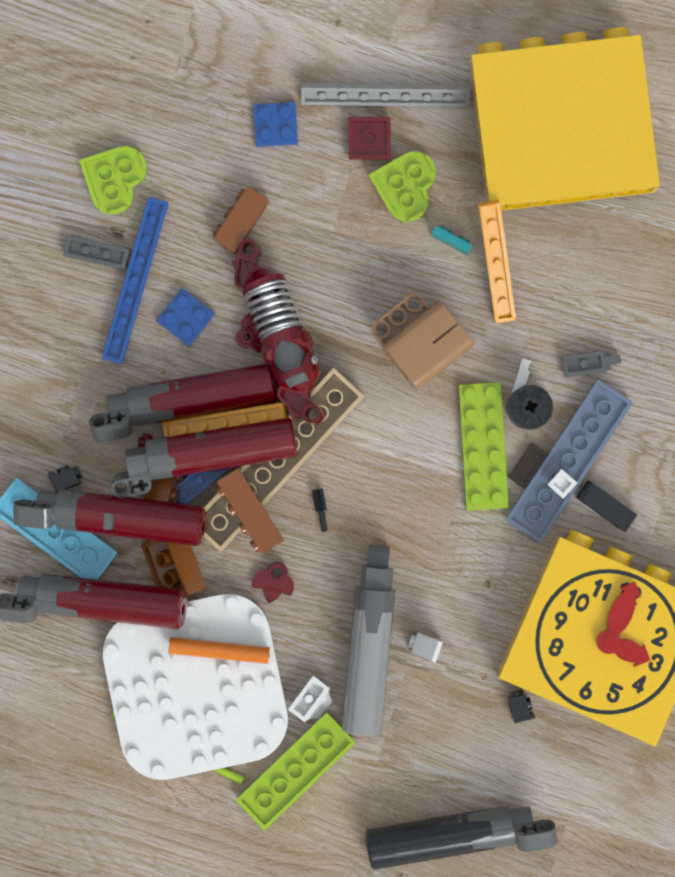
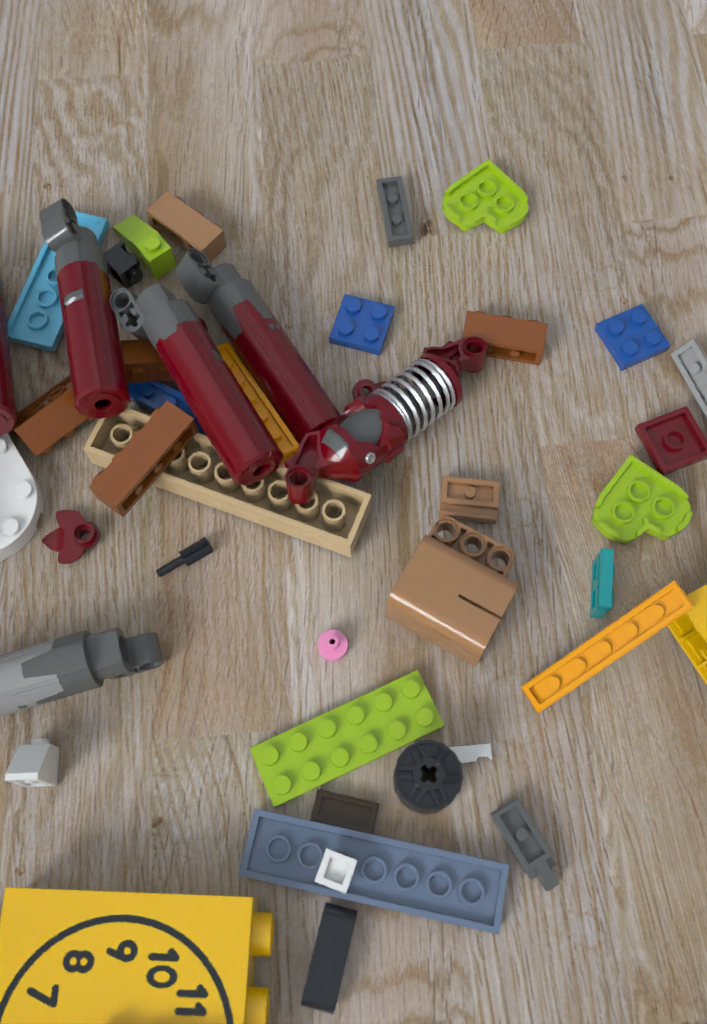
camera: 70 degrees right, 20 degrees down
(47, 456) = (146, 245): none -> lime slope
(48, 418) = (186, 226): none -> medium nougat brick
(135, 280) = (381, 258): blue plate -> none
(356, 300) = (469, 499): none -> medium nougat plate
(414, 432) = (330, 651): none -> bright pink tile

